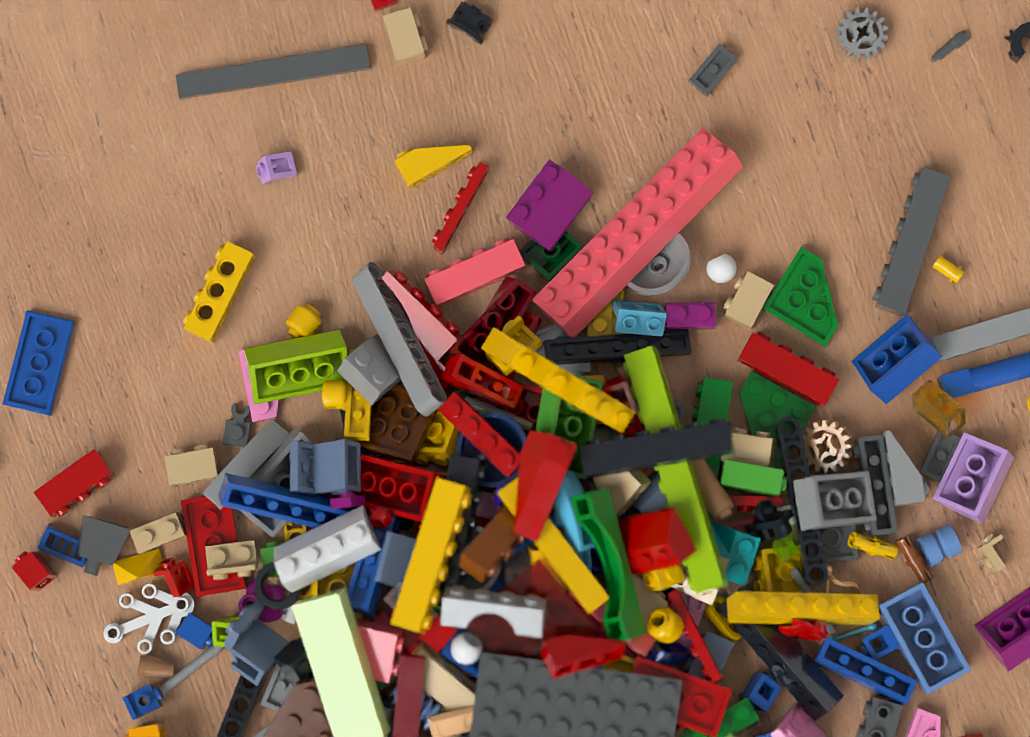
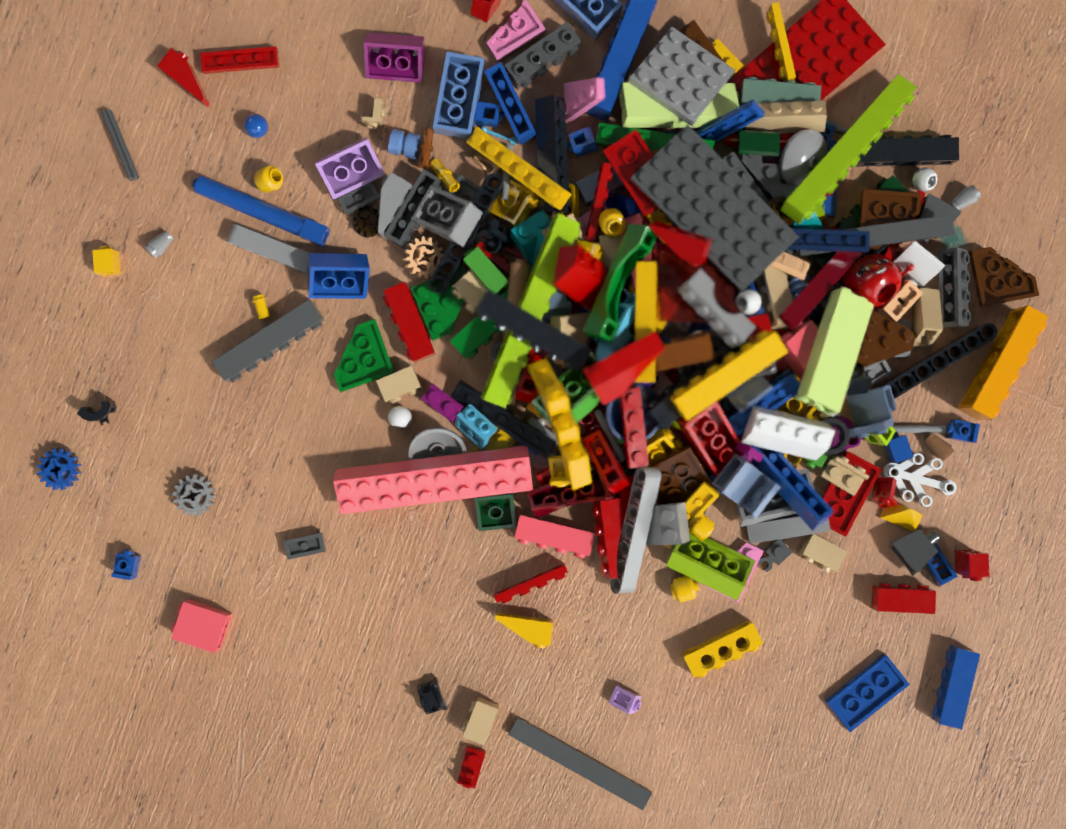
camera: 150 degrees left, 5 degrees up
(158, 533) = (876, 527): tan brick -> none
(380, 517) = (738, 425): red plate -> none
(549, 205) = (474, 540): magenta slope -> none
(780, 552) = (503, 217): clear neon green plate -> none
(805, 630) = (522, 150): red plate -> none
(919, 429) = (358, 224): none -> dark brown gear
(938, 408) = (336, 224): clear yellow brick -> none
(954, 42) = (141, 444): dark grey piece -> none

